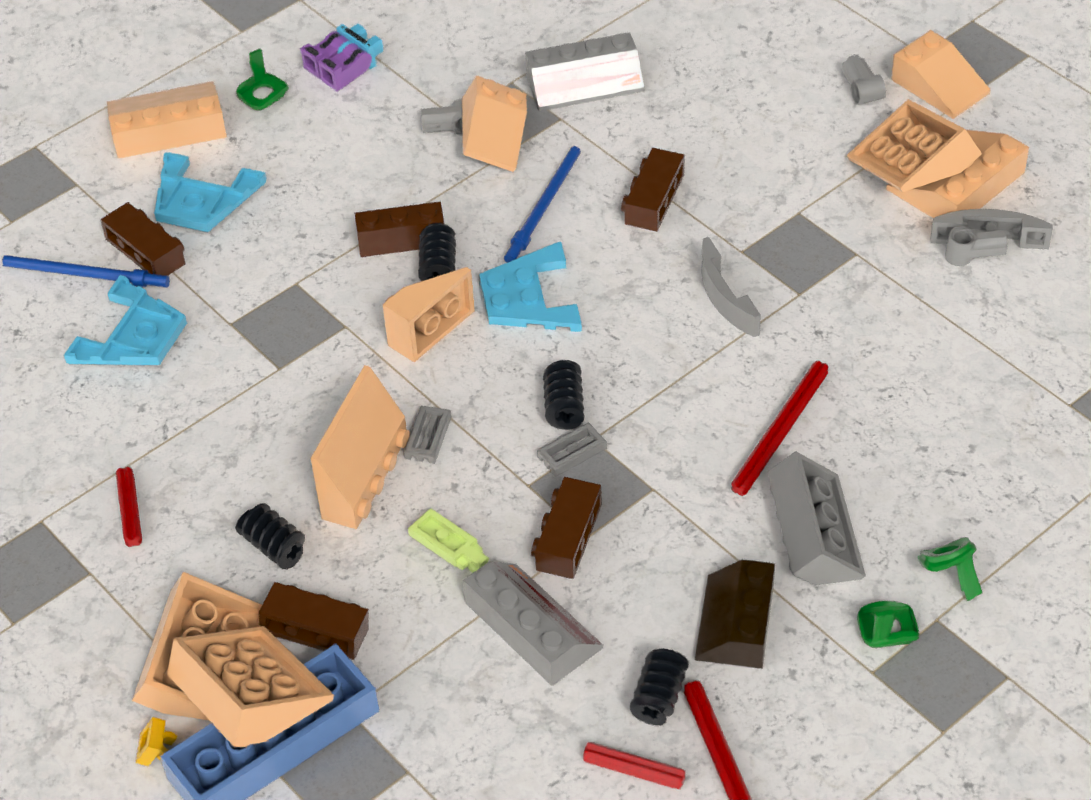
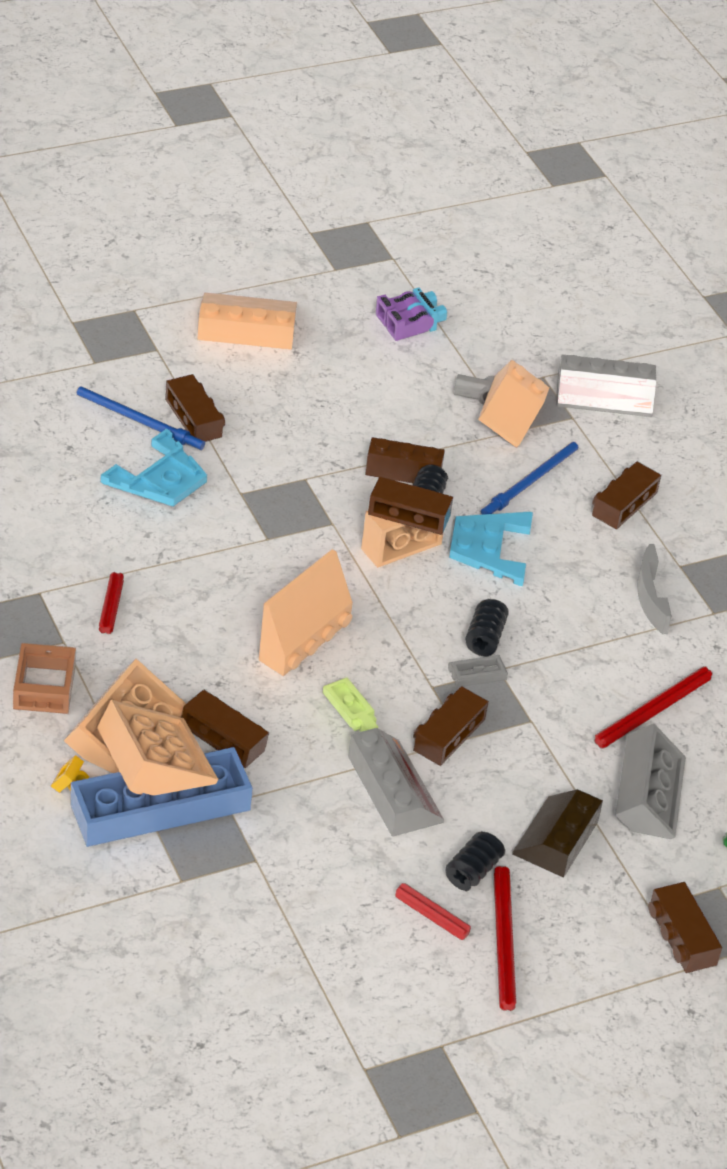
camera: 10 degrees right, 5 degrees down
(88, 653) = (44, 697): none -> nougat window
(196, 202) = (250, 393): medium azure wing -> none
(260, 79) = (334, 312): green piece -> none
(272, 535) = (214, 657): black piece -> none
(422, 452) = (373, 630): light grey tile -> none
(431, 282) = (410, 505): none -> reddish brown brick
(877, 620) = (667, 869): green piece -> none
(923, 685) = (685, 927): none -> reddish brown brick

